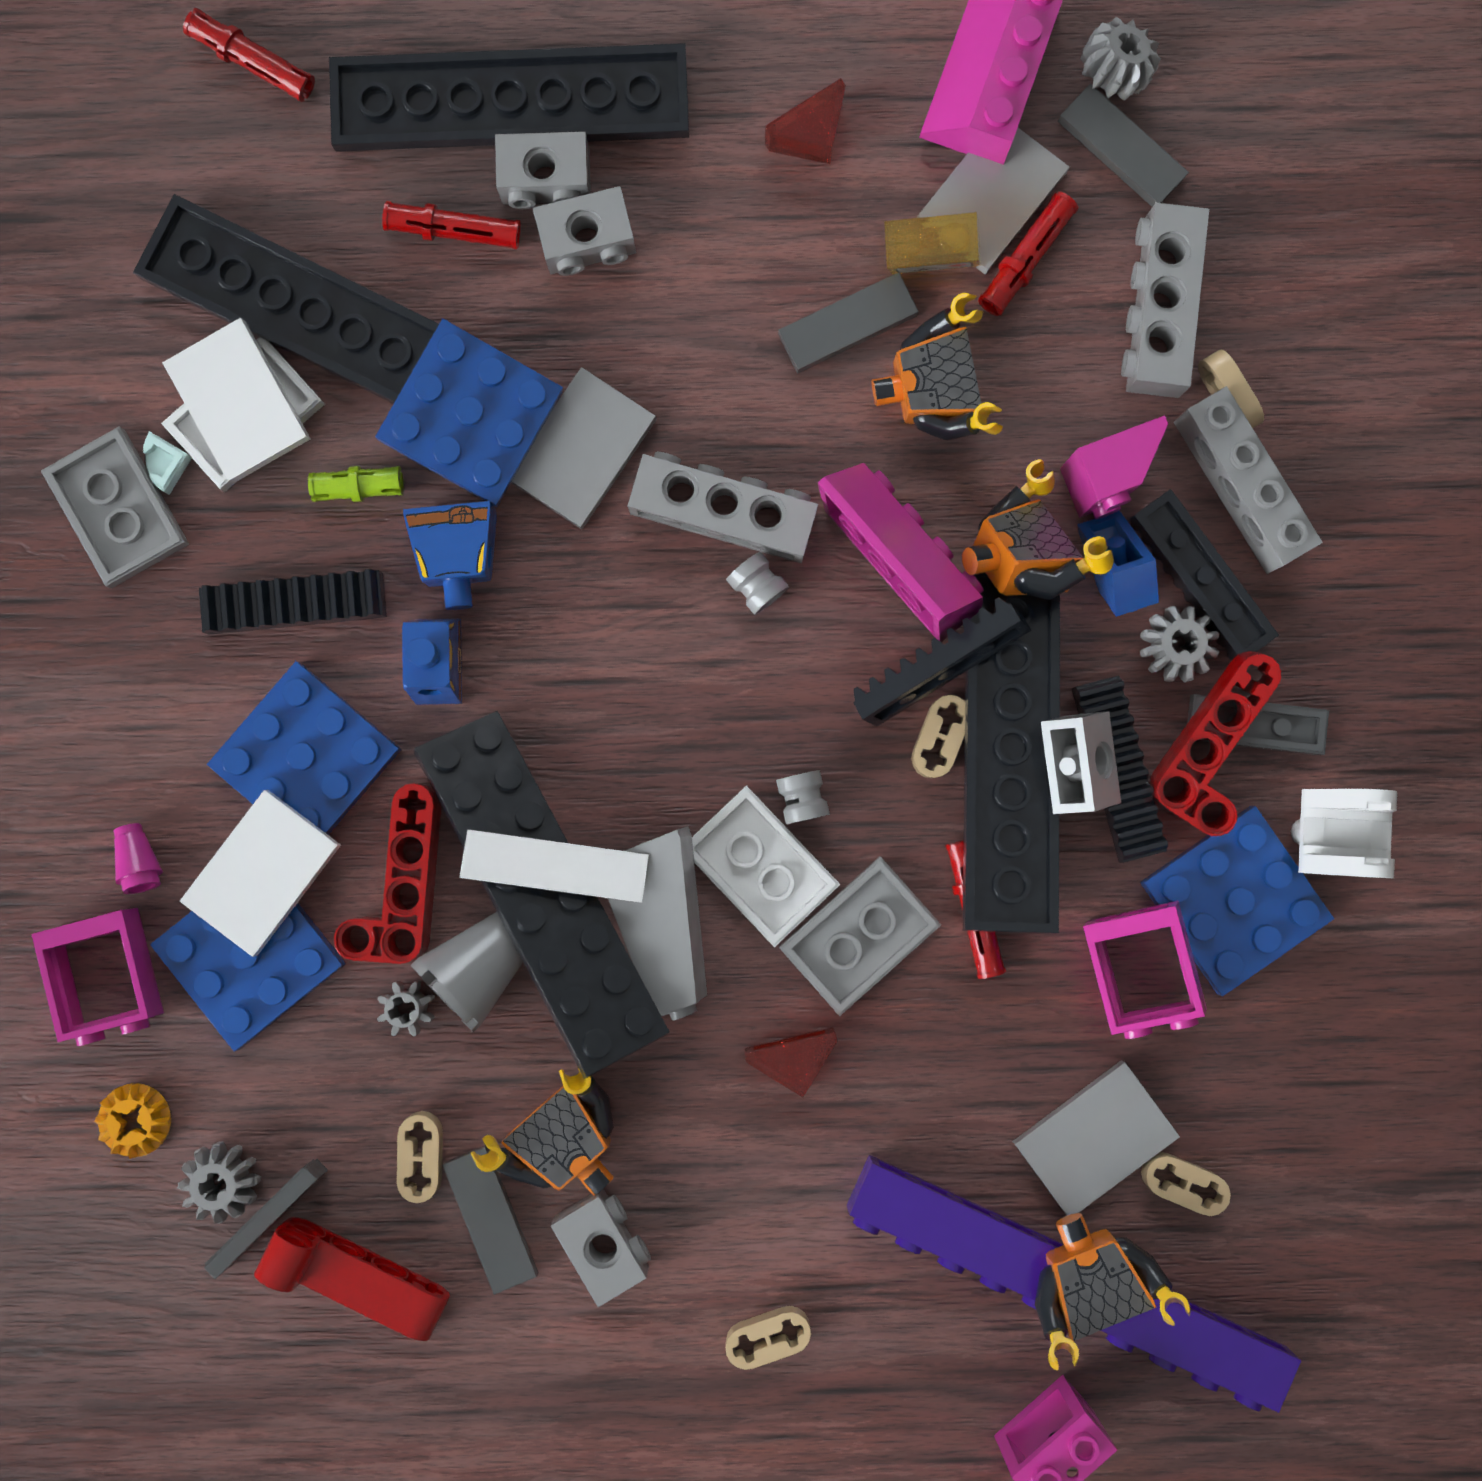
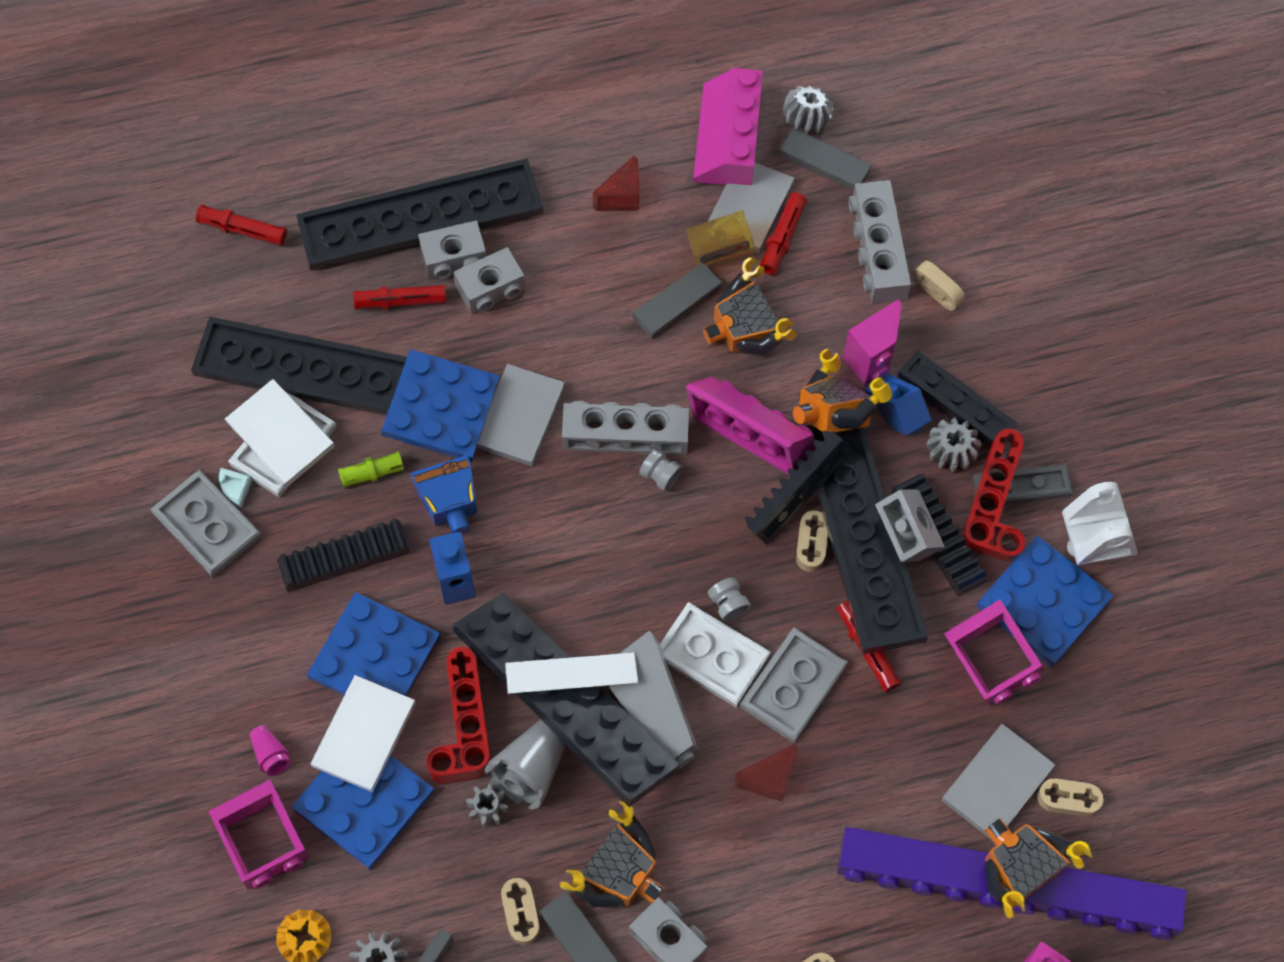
camera: 15 degrees left, 20 degrees down
(1247, 480) = (966, 335): light grey brick -> none

